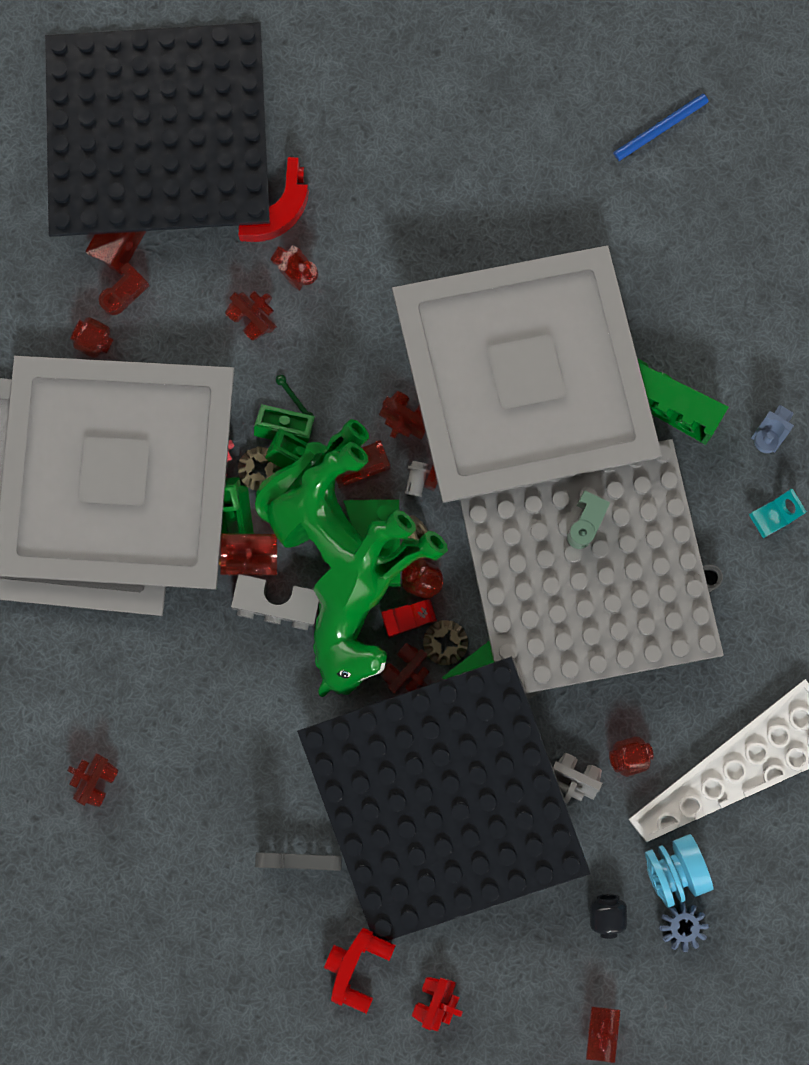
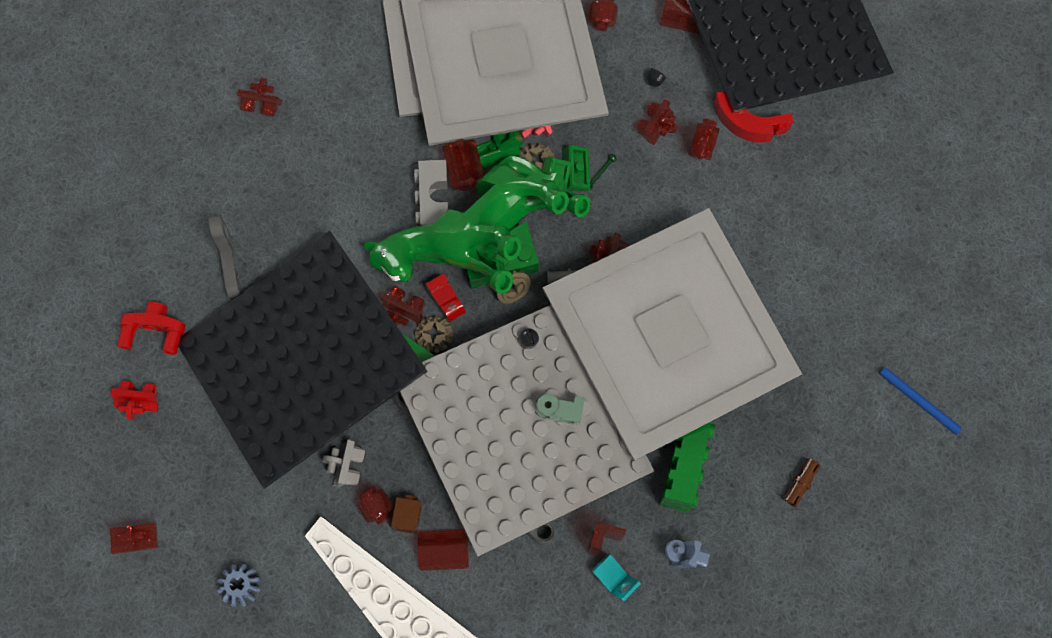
camera: 70 degrees right, 10 degrees down
(124, 292) = (646, 27): clear red leg -> none
(192, 299) = (655, 77): none -> black hinge
(377, 463) = (560, 232): clear red hinge -> none
(422, 579) = (480, 299): clear red head -> none
(497, 539) = (524, 340): none -> black hinge
(608, 916) = (235, 519): black head -> none
(650, 722) = (406, 514): none -> reddish brown brick
(678, 871) = (281, 562): medium azure wheel -> none
(697, 693) = (442, 550): none -> clear red panel
(720, 284) = (801, 482): none -> reddish brown pin
(731, 519) = (604, 531): none -> clear red panel

